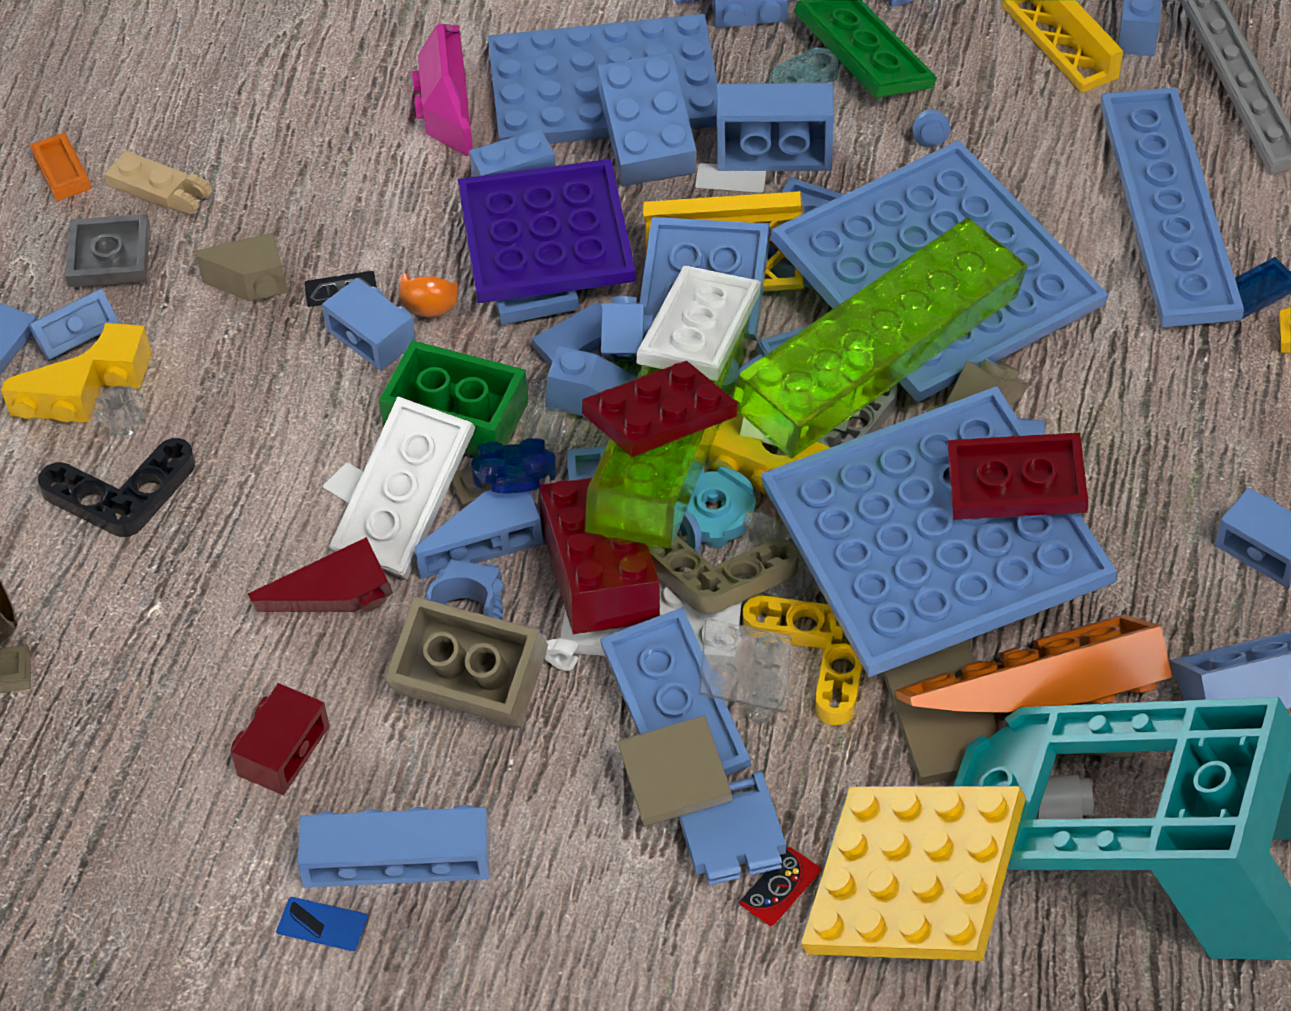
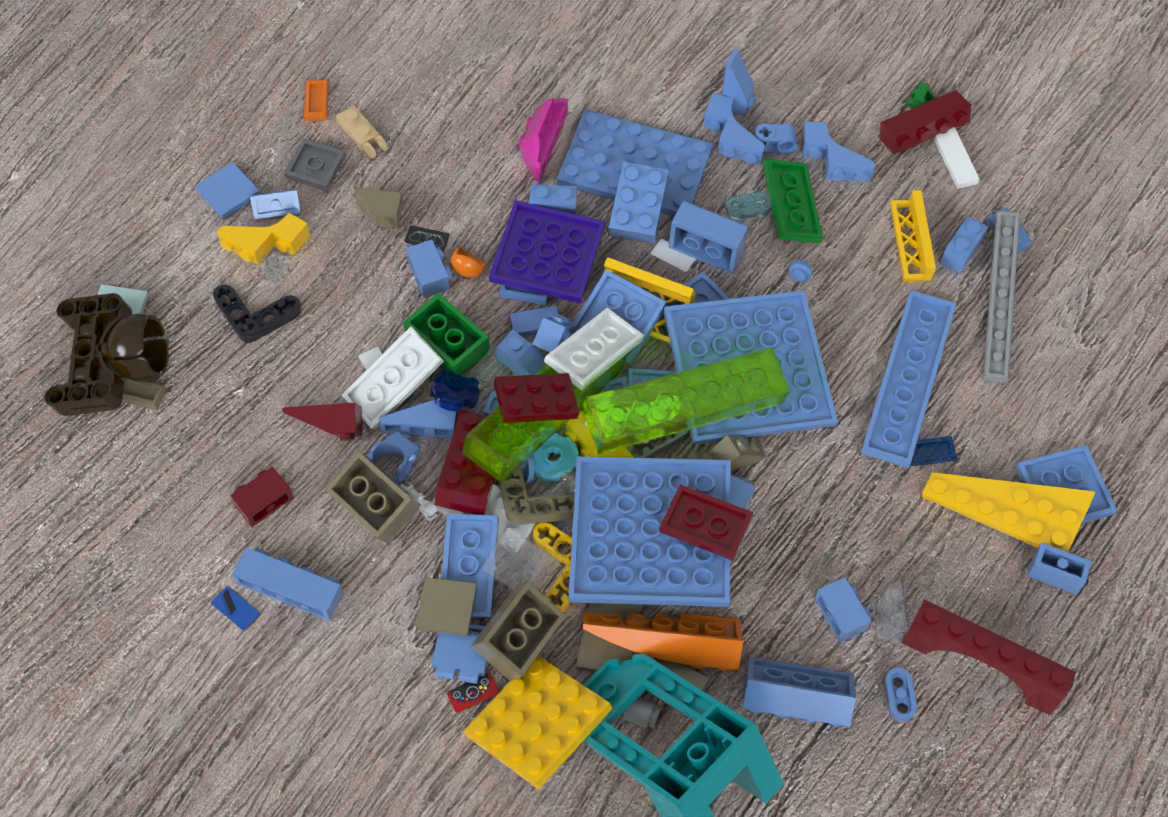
camera: 20 degrees right, 10 degrees up
(810, 757) = (518, 631): none -> dark tan brick

